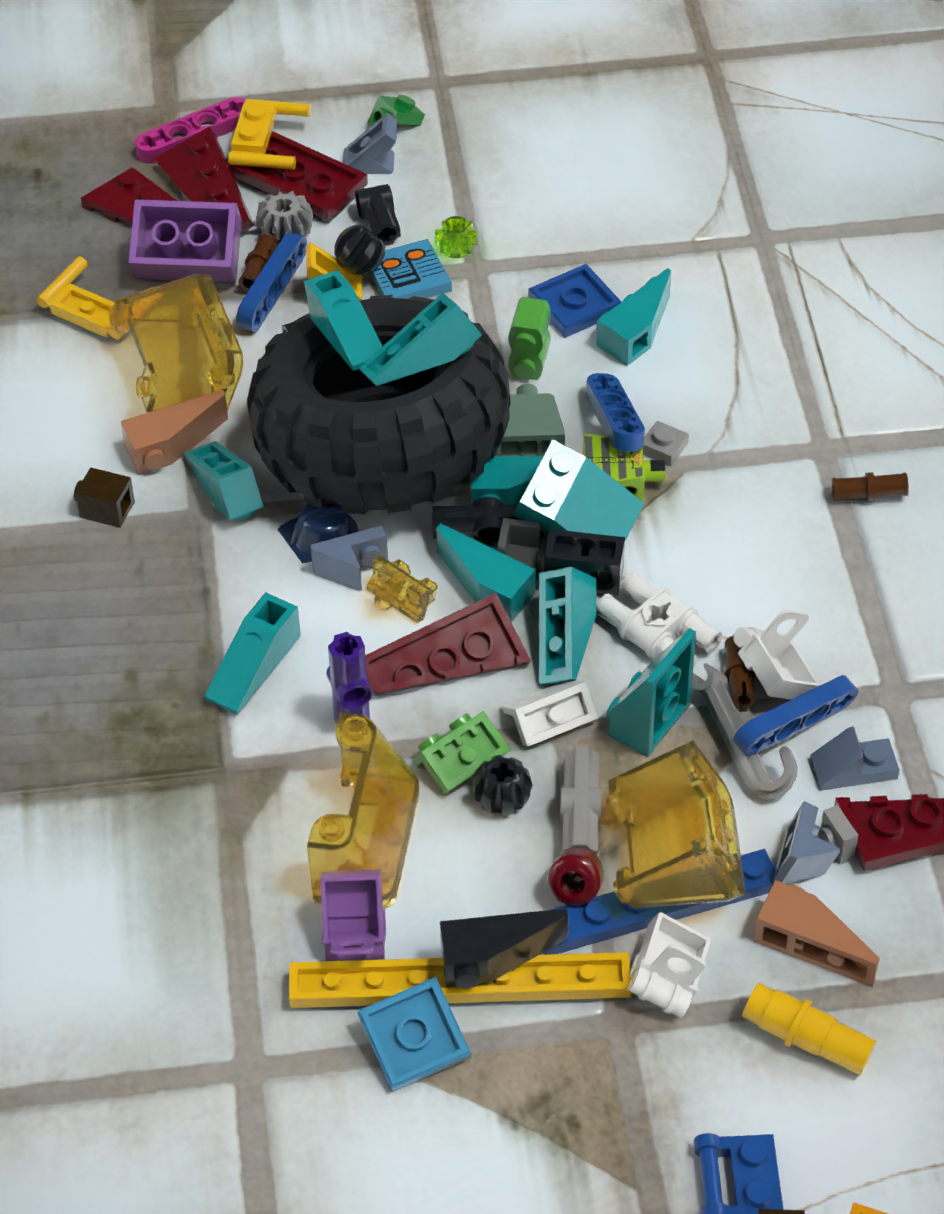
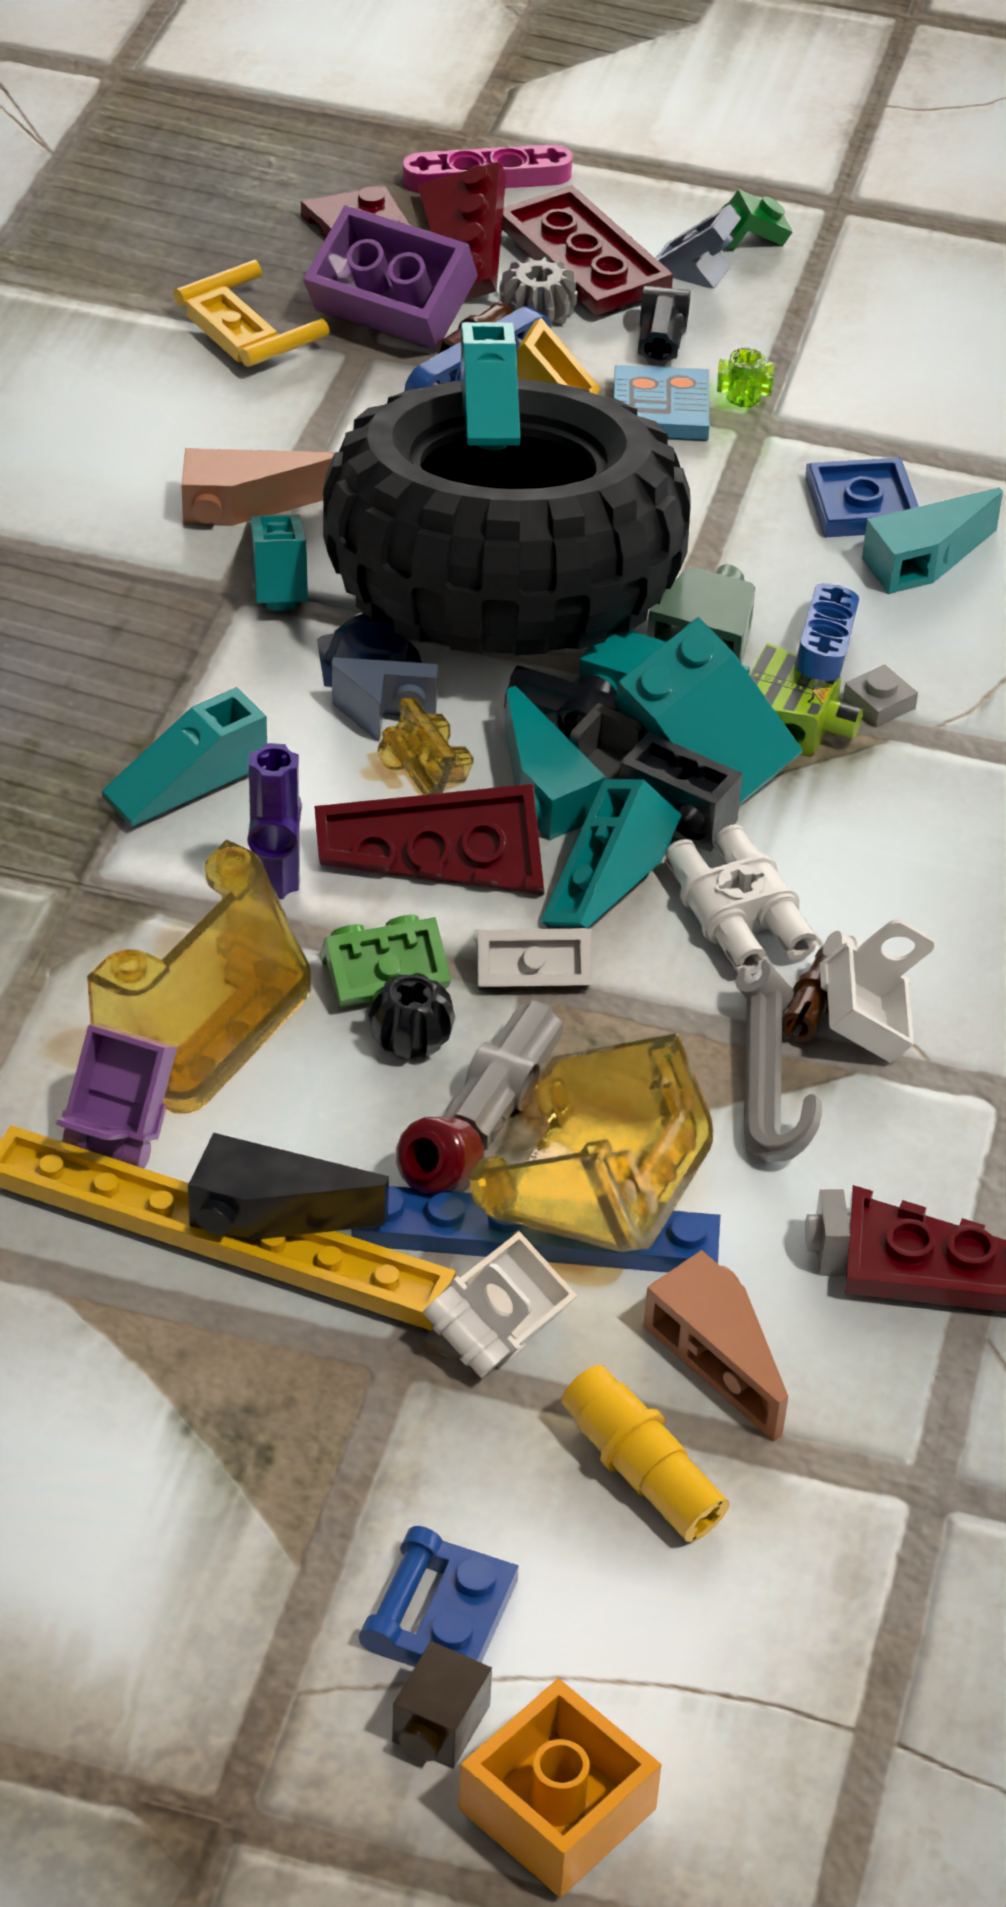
camera: 20 degrees right, 5 degrees down
(104, 497) = (119, 530): dark brown brick -> none
(181, 340) = (305, 377): clear yellow windscreen -> none
(254, 132) = (558, 183): yellow plate -> none
(359, 250) = (605, 350): black piece -> none
(414, 1034) = (116, 1266): dark azure tile -> none
(427, 341) = (579, 434): teal slope -> none
(529, 338) = (763, 512): bright green brick -> none
(655, 697) = (674, 971): teal slope -> none
(795, 715) = (855, 1065): blue beam -> none
(802, 852) = (767, 1233): sand blue slope -> none
(853, 763) = (899, 1155): sand blue slope -> none

